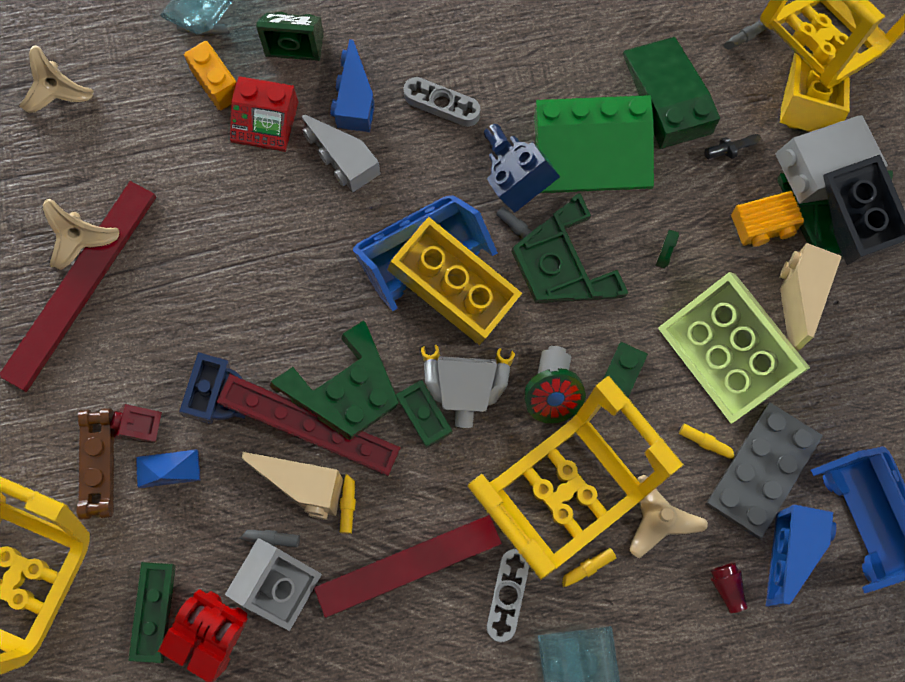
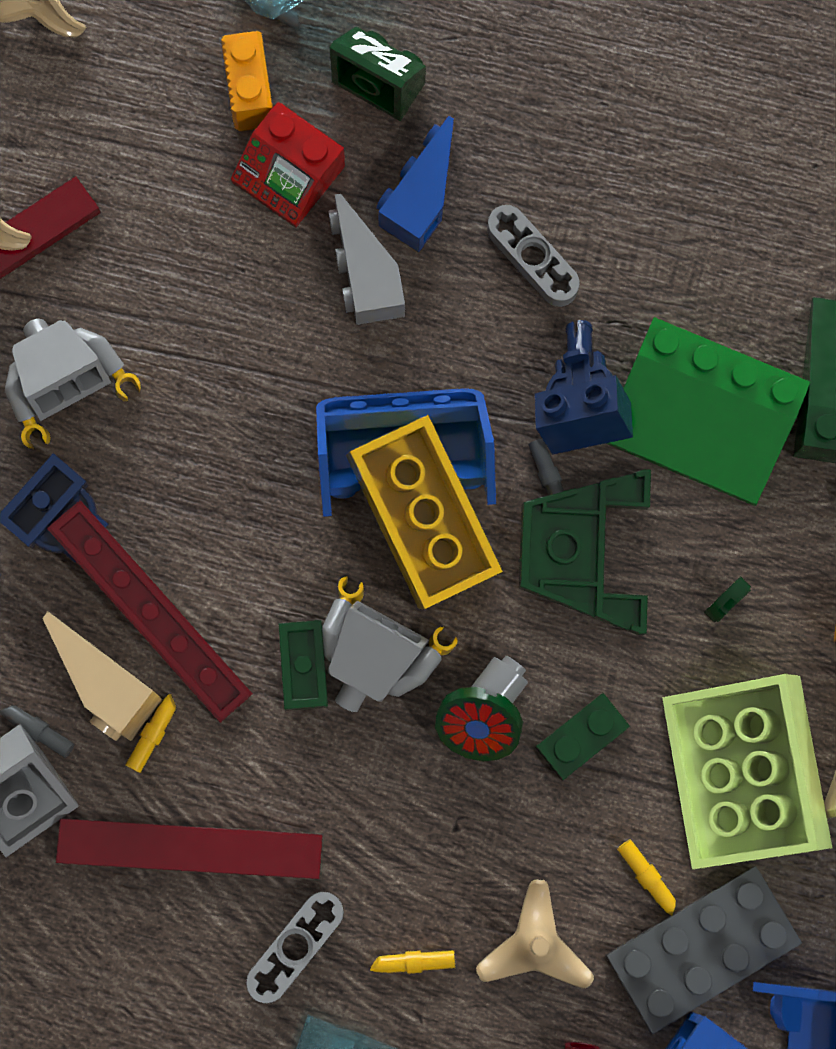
camera: 20 degrees right, 5 degrees up
(175, 302) = (58, 369): none -> light grey torso
(352, 397) = (222, 601): dark green wing -> none
(517, 527) = (555, 873): yellow windscreen -> none

